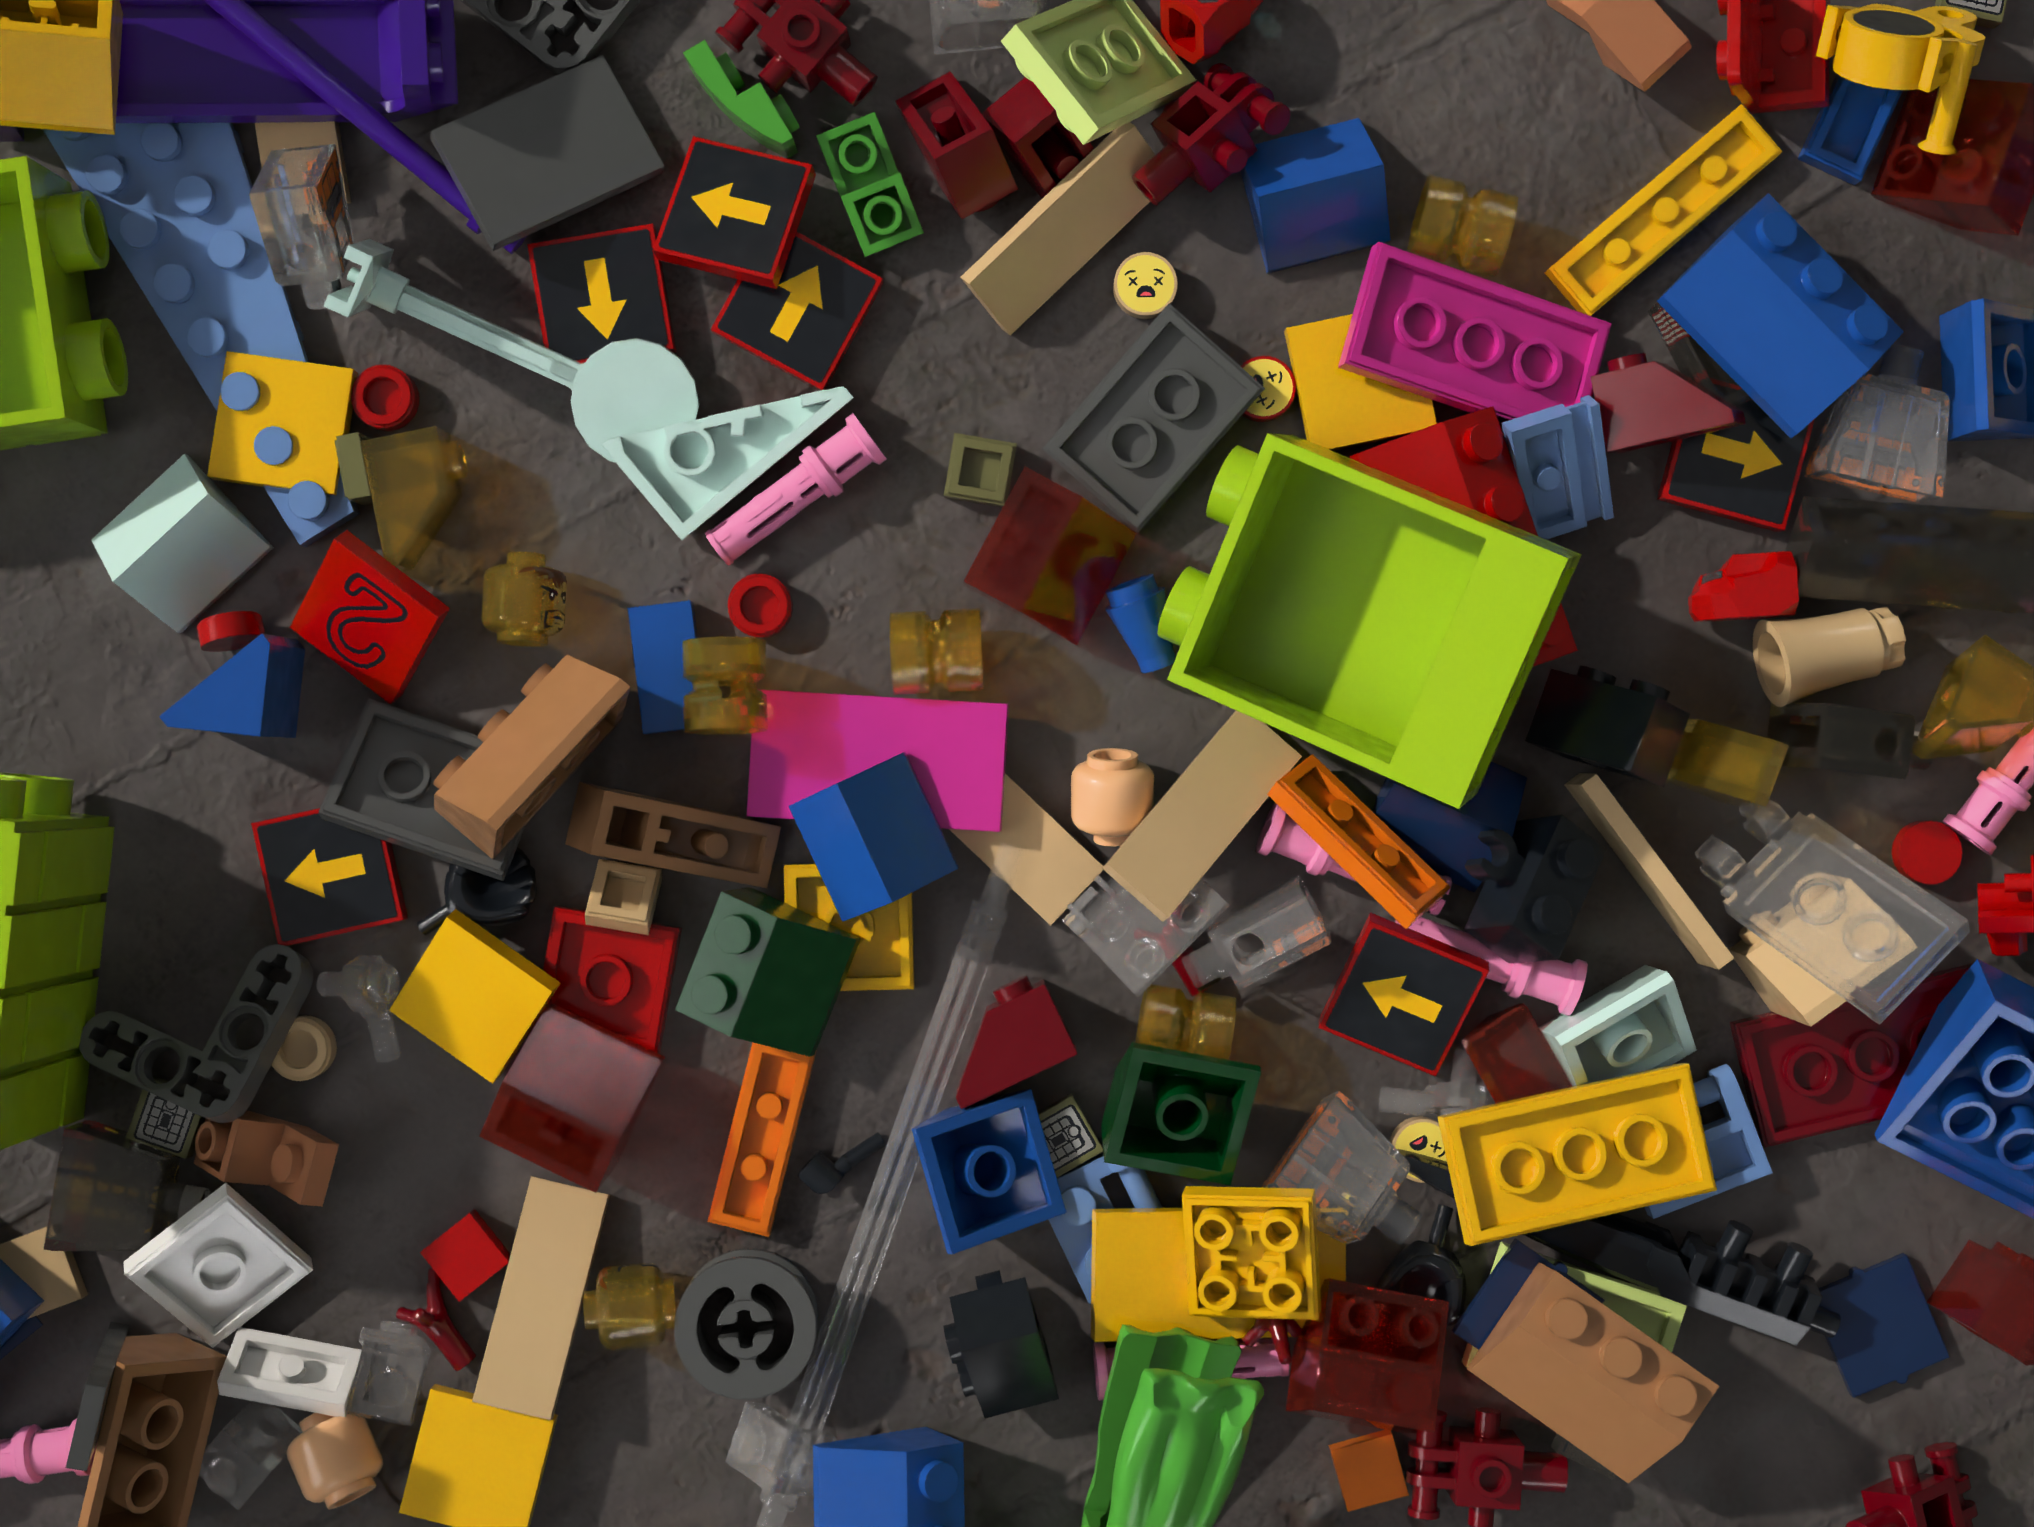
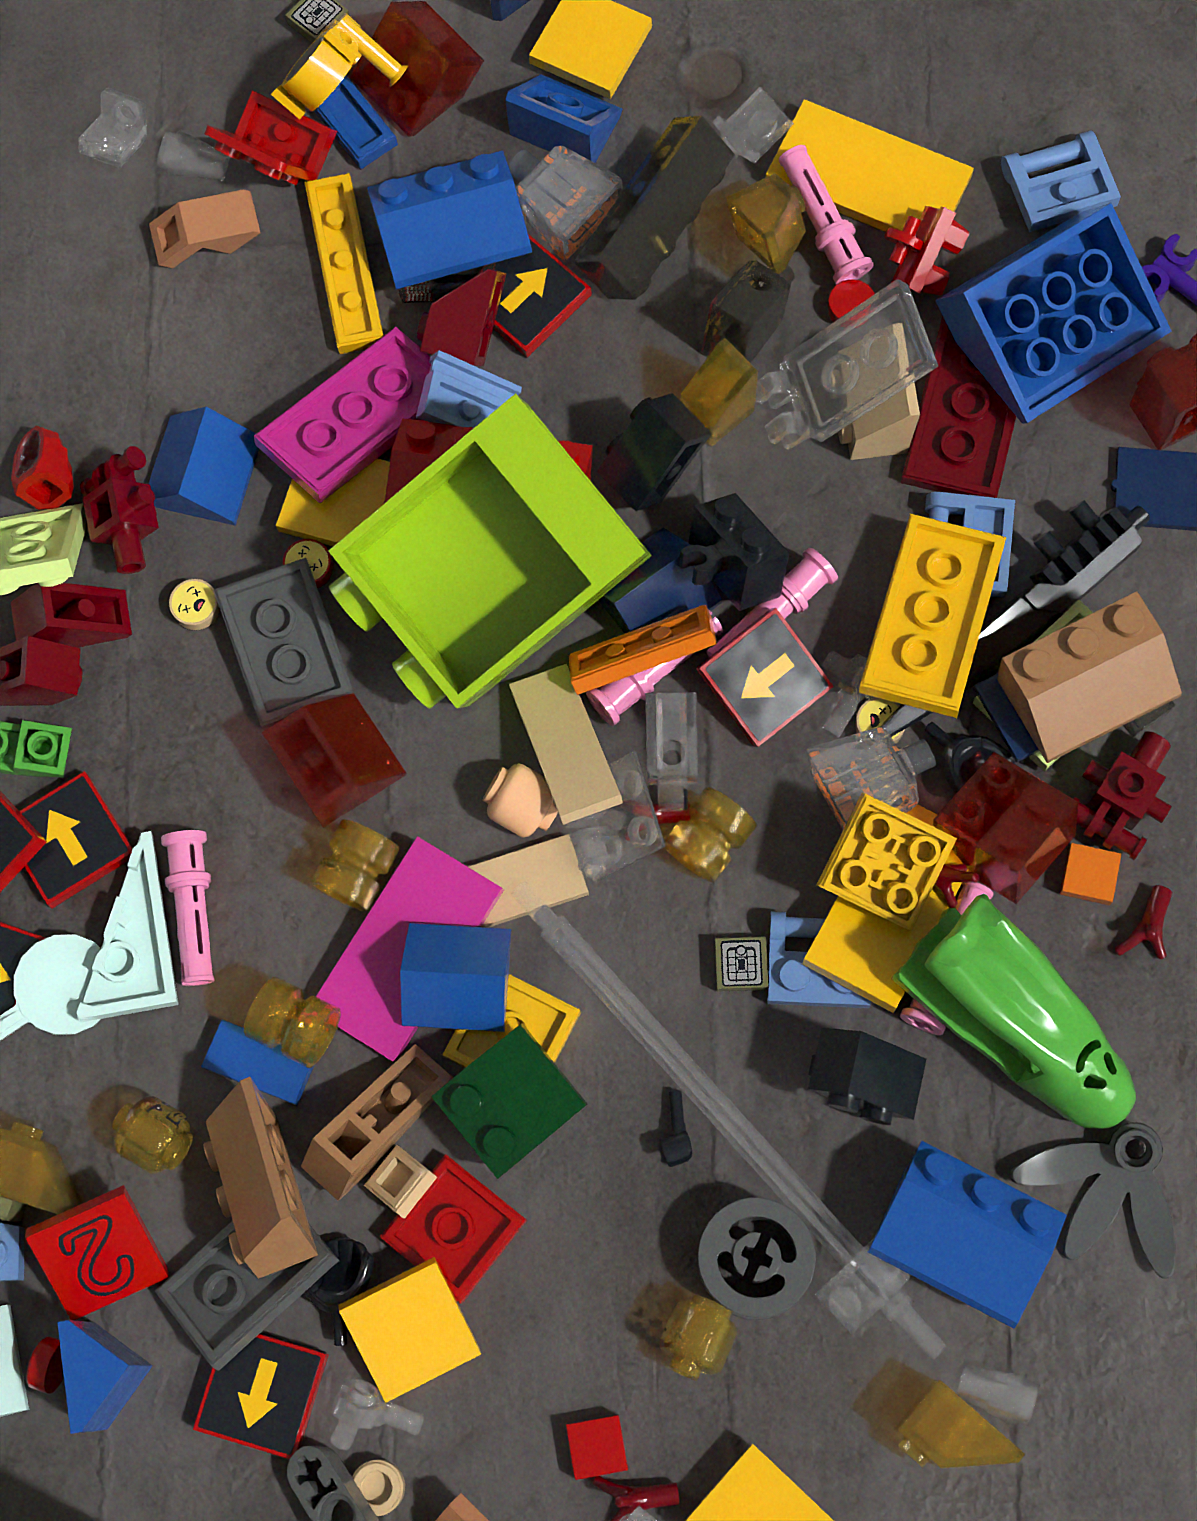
camera: 55 degrees left, 15 degrees down
(541, 1298) = (658, 1404): tan piece -> none
(572, 1097) = (520, 1292): clear red slope -> none
(760, 605) = (251, 971): red tile -> none
(761, 1139) = (627, 1177): orange tile -> none
(980, 470) = (251, 776): olive tile -> none
(988, 1169) = (734, 1018): blue slope -> none
(1014, 1041) = (653, 955): dark red slope -> none
(1061, 230) = (125, 636): tan piece -> none
(1136, 614) = (411, 720): blue cone -> none
(1178, 1112) = (759, 862): dark green slope -> none
(1465, 226) = (279, 381): clear yellow wheel -> none
(1514, 1056) = (845, 626): clear red slope -> none
(1622, 1029) = (865, 547): light aqua slope -> none
(1649, 870) = (767, 476): tan piece -> none
(1747, 589) = (616, 326): red rock -> none
(1825, 651) = (682, 301): tan plant -> none

